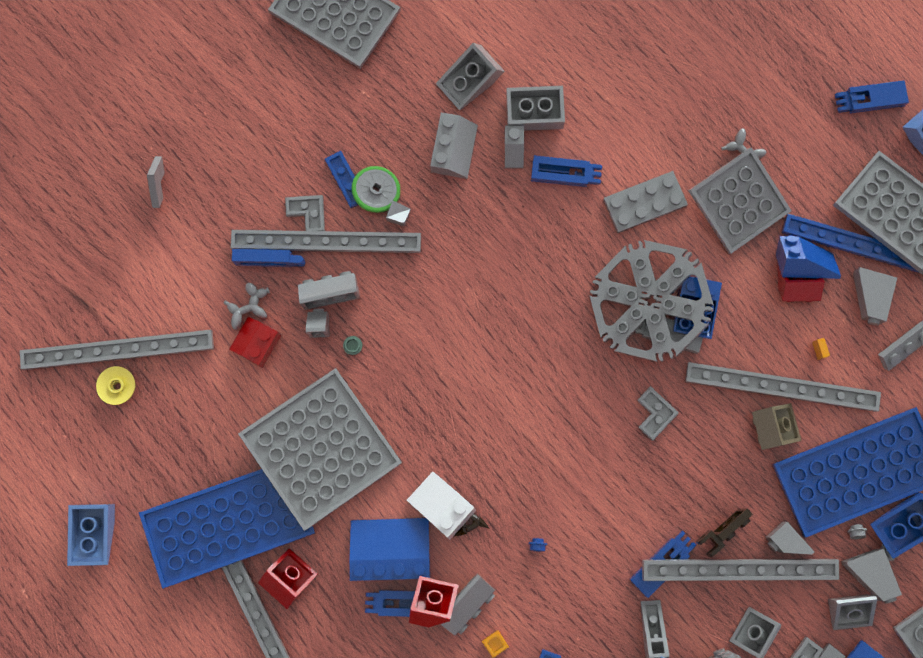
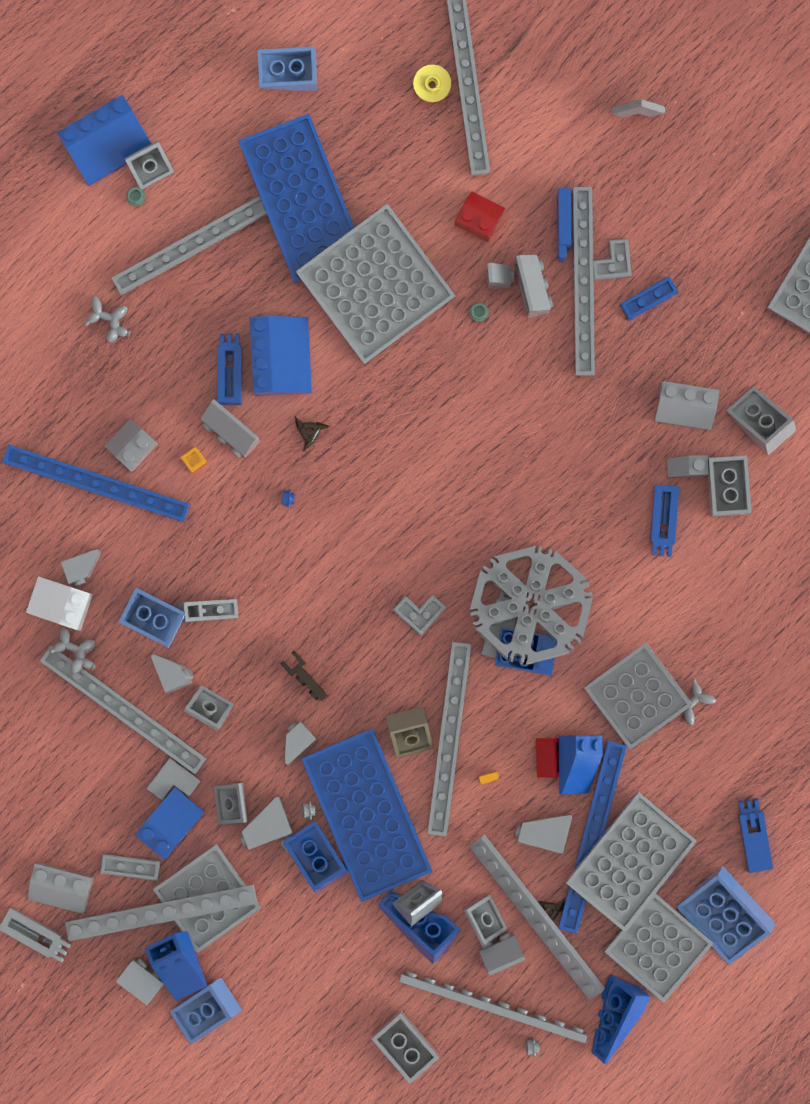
camera: 85 degrees right, 5 degrees up
(252, 306) = (514, 211): light grey piece -> none
(287, 578) = (250, 259): red slope -> none
(375, 177) = (628, 322): light grey wheel -> none
(398, 213) = (614, 352): light grey slope -> none
(432, 602) = (231, 394): red slope -> none
(441, 505) = (323, 403): white slope -> none
(645, 202) = (635, 602): light grey plate -> none
(680, 552) = (267, 615): blue hinge -> none
(739, 569) = (268, 694): light grey plate -> none

